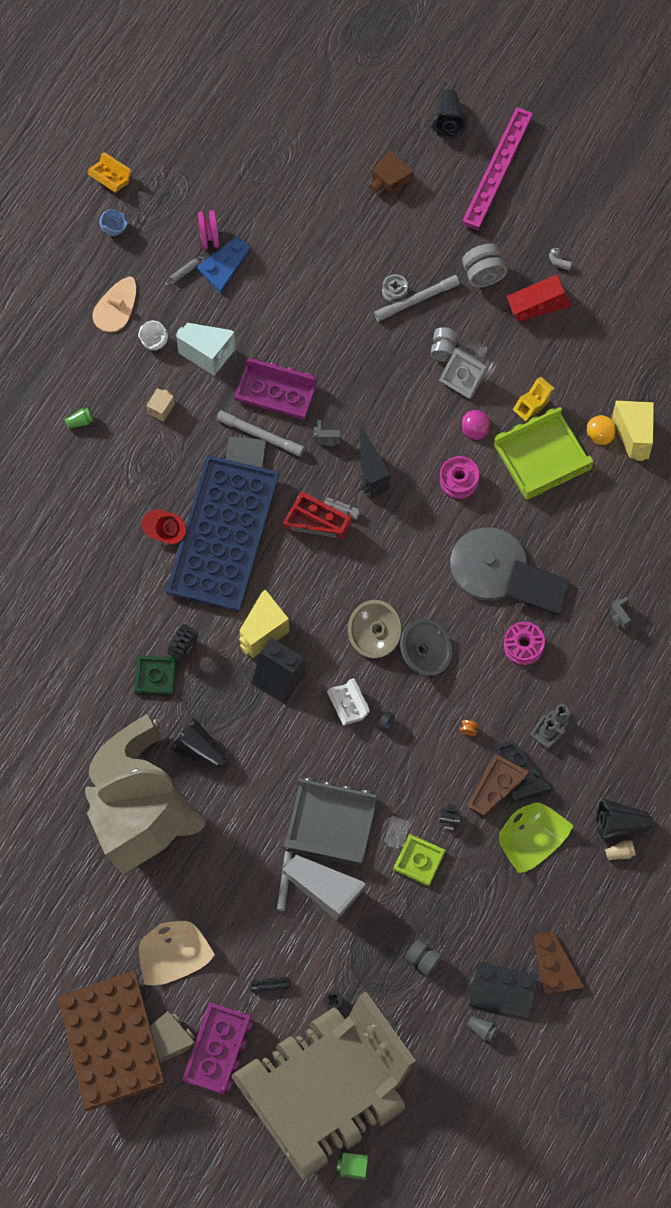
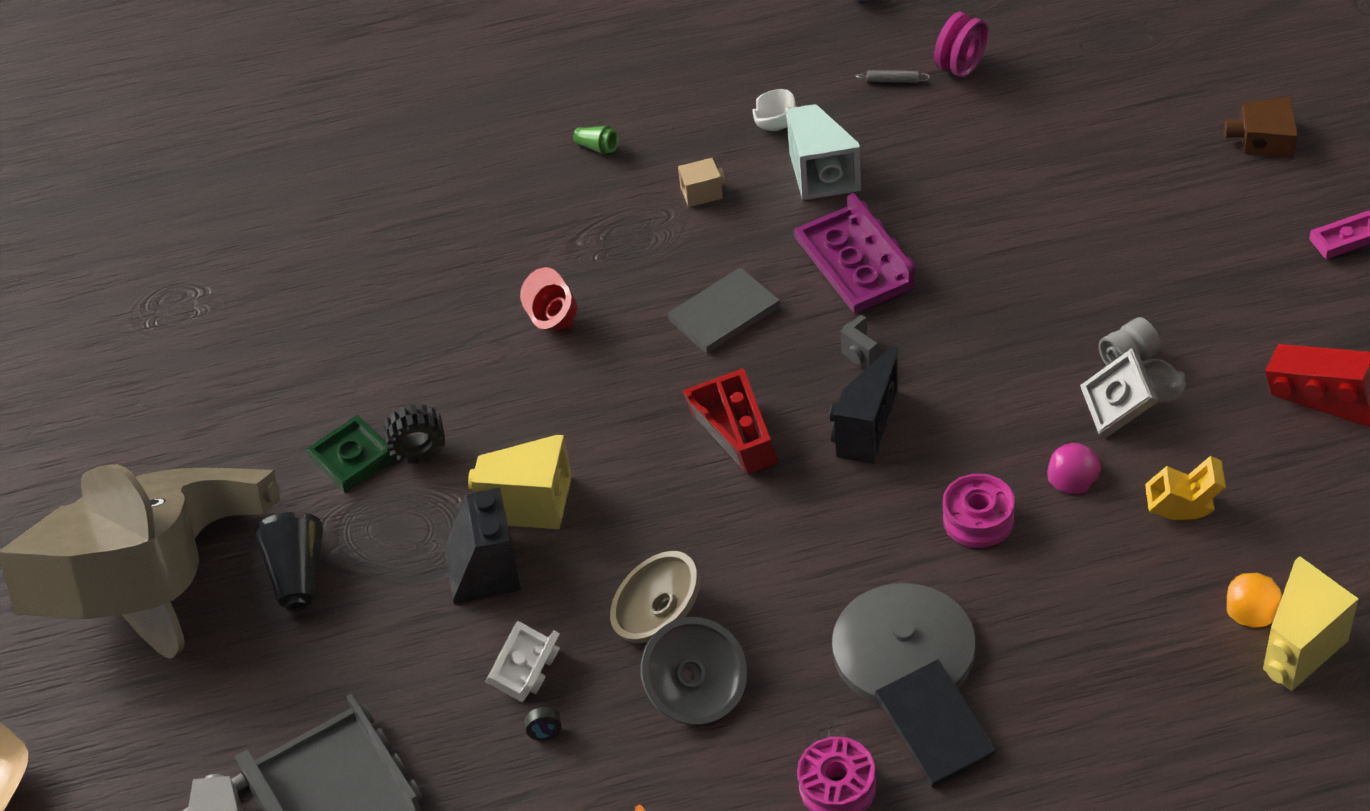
camera: 50 degrees right, 20 degrees down
(115, 306) = (774, 64): light nougat shield -> none
(222, 264) = (944, 96): blue wing -> none
(223, 533) = (609, 358): dark blue plate -> none
(287, 445) = (799, 324): light grey piece -> none
(344, 508) = (784, 438): light grey axle -> none
(389, 310) = (1205, 287): light grey piece -> none
(394, 288) = (1134, 249): light grey wheel -> none
(484, 265) = (1284, 290): light grey wheel -> none
(542, 453) = (1132, 566): lime panel -> none

